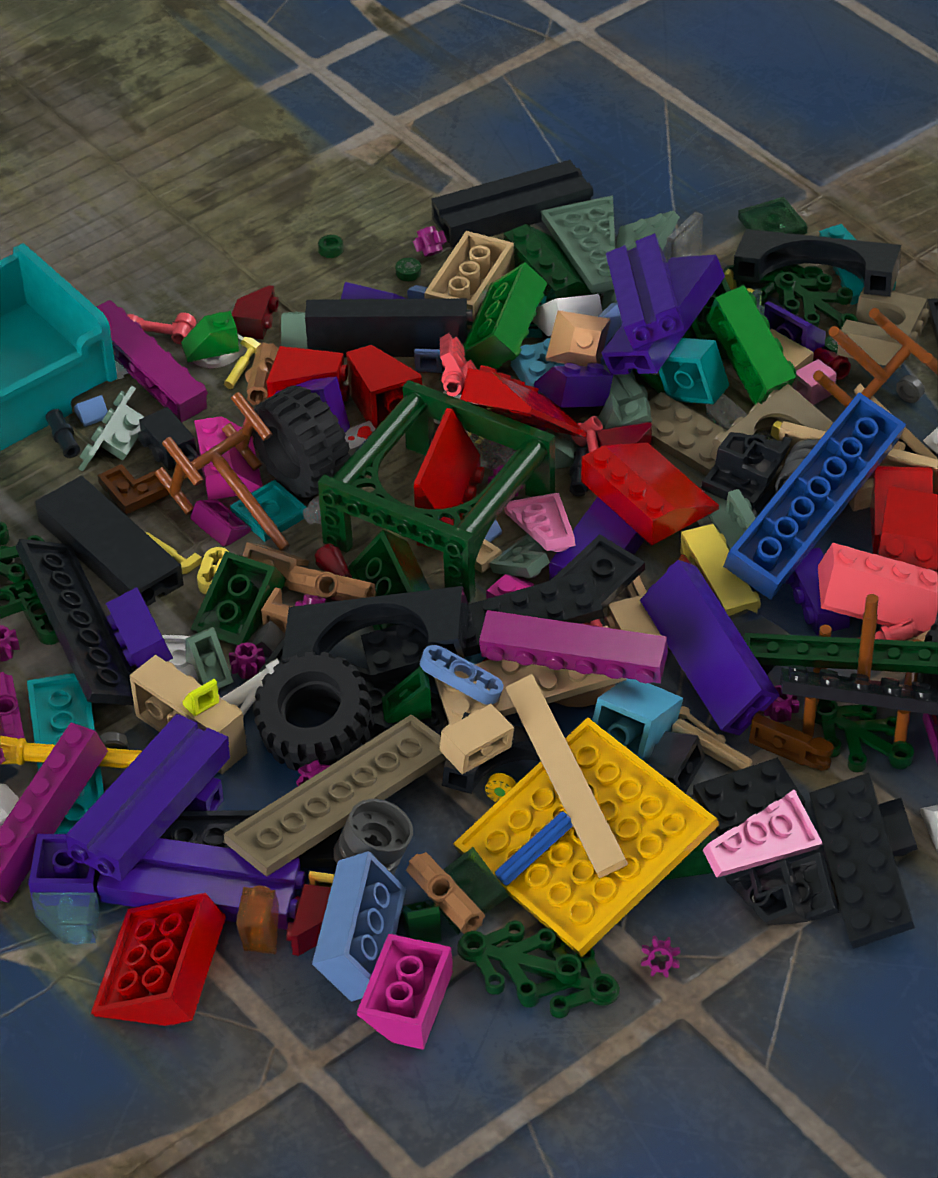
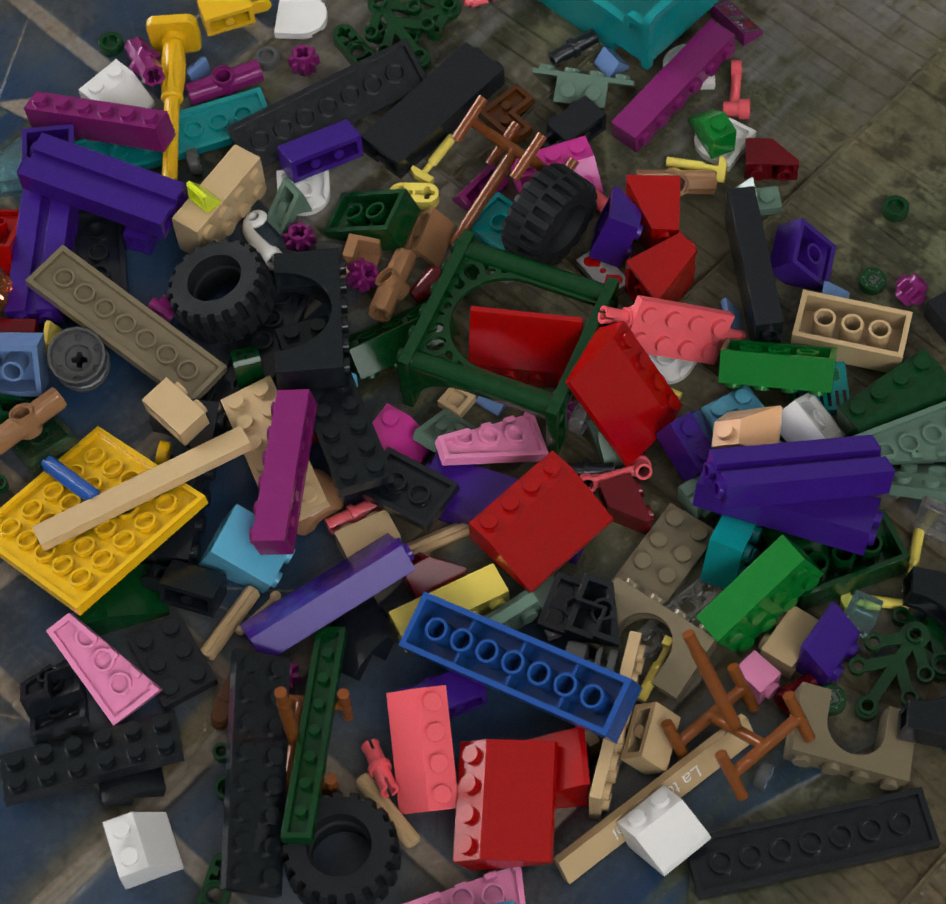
camera: 85 degrees right, 15 degrees up
(465, 685) = (266, 372): medium blue beam -> none
(628, 414) = (665, 498): sand green slope -> none

